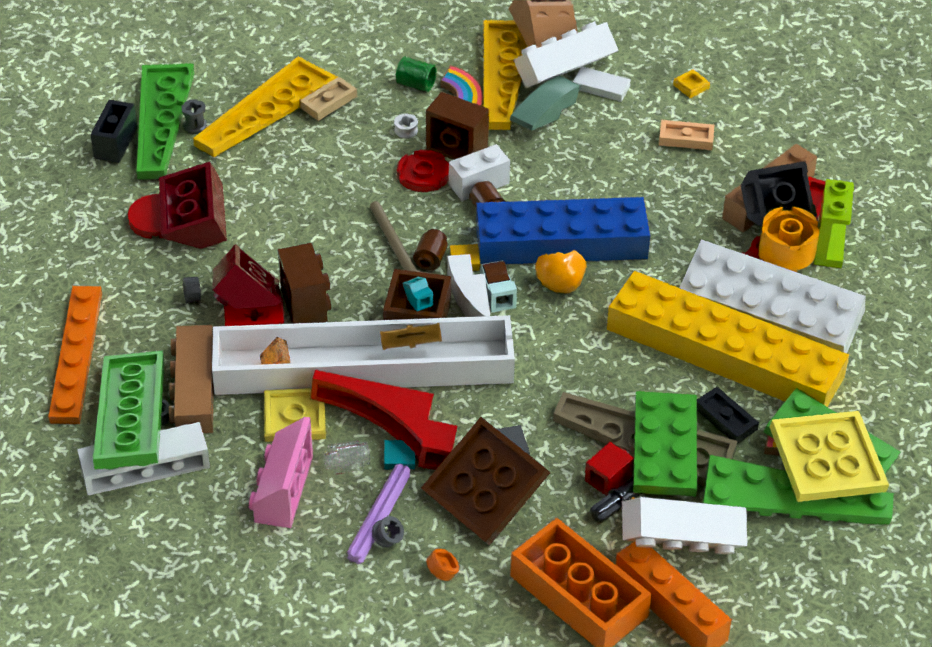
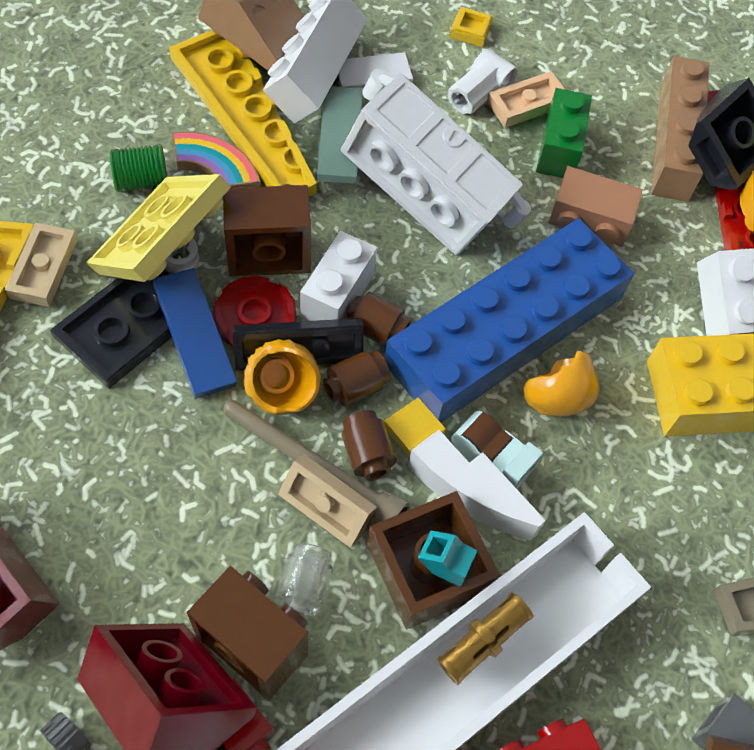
camera: 40 degrees left, 15 degrees up
(349, 287) = (305, 579): none -> clear brick
(354, 144) = (115, 329): none -> black tile
(381, 162) = (194, 333): none -> blue tile
(386, 258) = (327, 500): none -> tan plate
(398, 100) = (159, 227): none -> light yellow plate
(409, 198) = (282, 377): none -> light orange hair
(433, 191) = (325, 339): none -> black tile
(451, 219) = (356, 378): none -> reddish brown brick
(574, 133) = (430, 163): none -> white container
(671, 203) = (599, 202): none -> nougat brick
(673, 109) = (486, 75): none -> white piece
(687, 159) = (564, 132): none -> green brick

